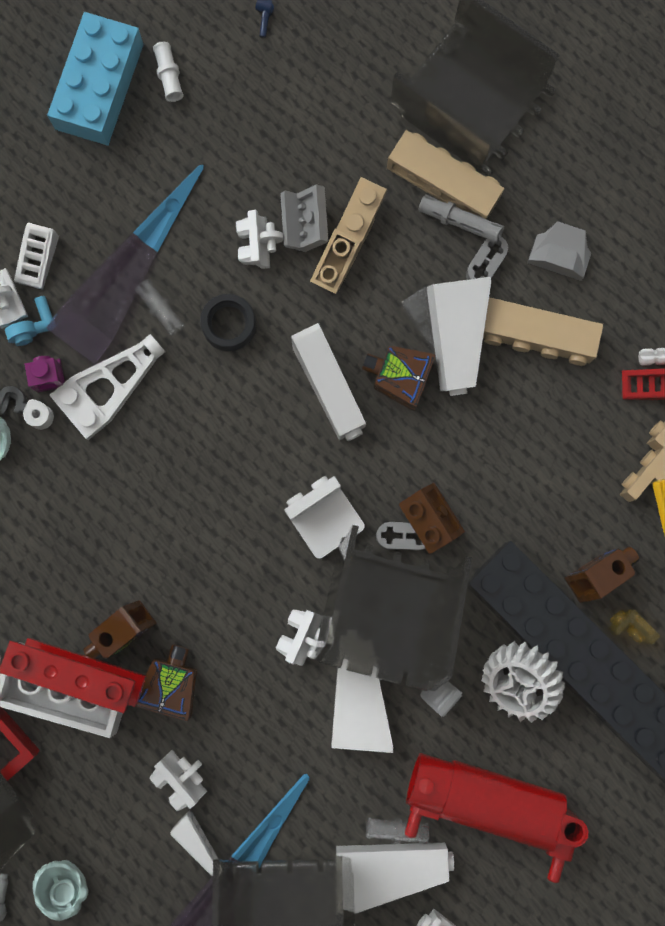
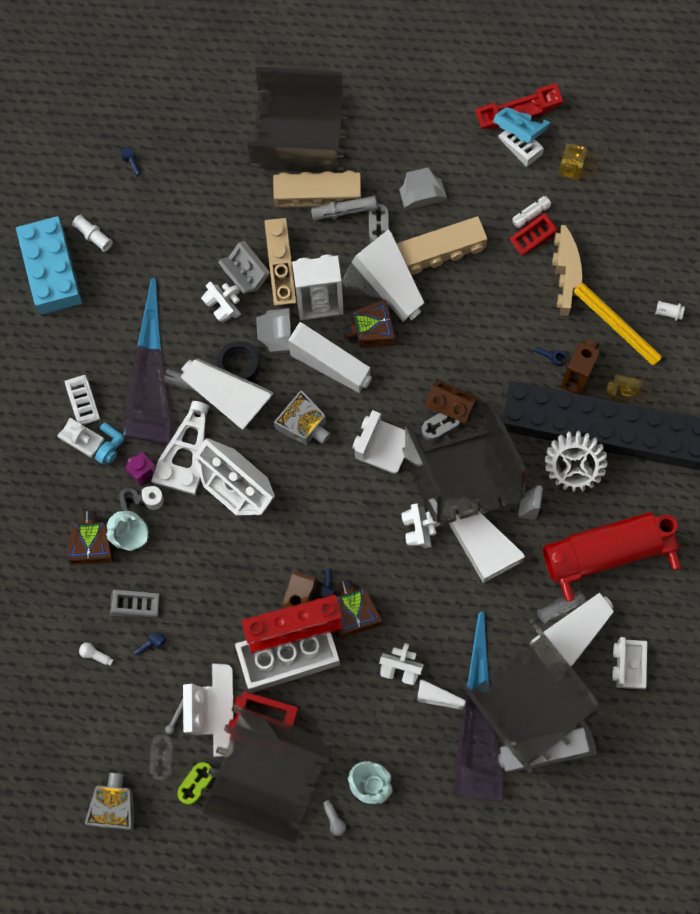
camera: 25 degrees left, 10 degrees down
(136, 452) = (233, 479): none -> white wedge
(155, 643) = (326, 590): none -> dark blue hand
(190, 348) = (227, 392): none -> white slope
(255, 434) = (302, 421): none -> torso
(293, 309) = (275, 330): none -> light grey slope
(364, 293) = (318, 287): none -> white brick
(578, 537) = (552, 356): none -> dark blue hand

